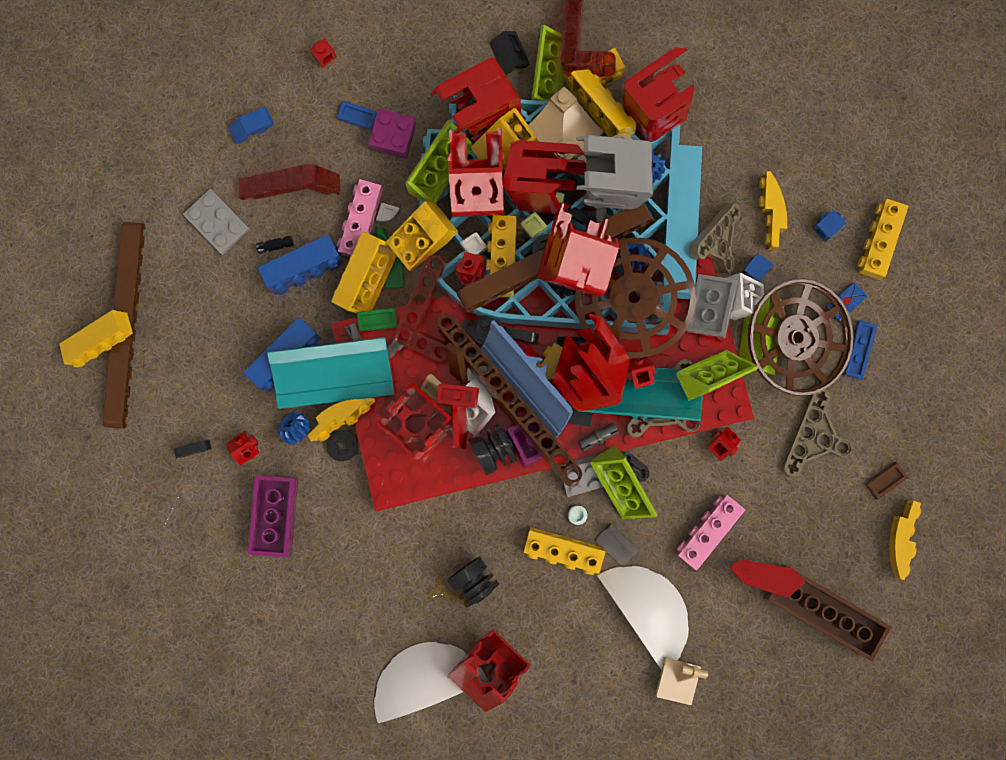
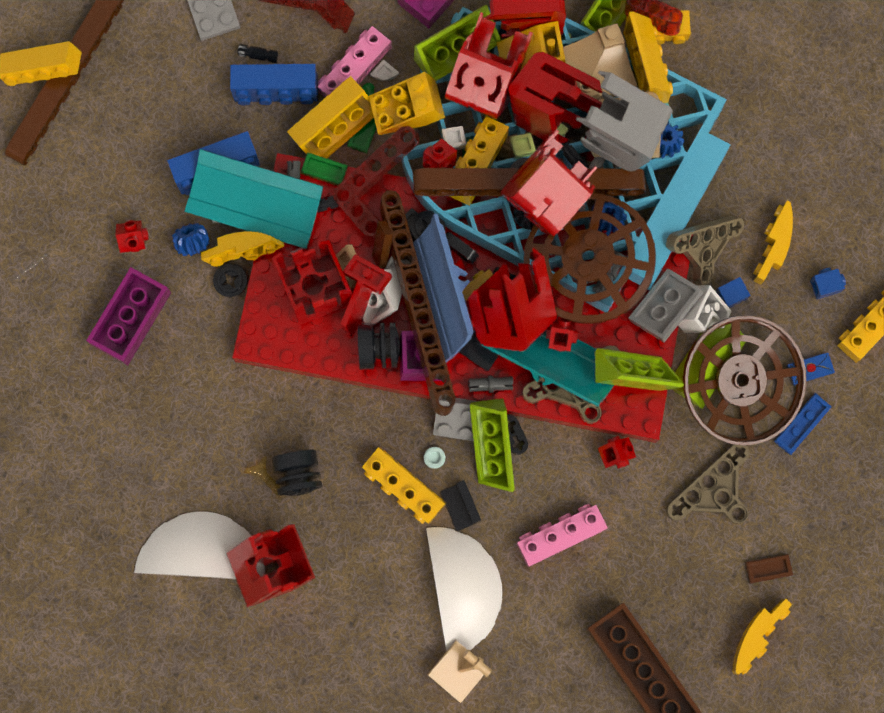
camera: 20 degrees right, 5 degrees down
(192, 449) = (80, 215): black beam -> none
(656, 100) = (702, 76): red piece -> none
(768, 577) = (597, 604): red piece -> none

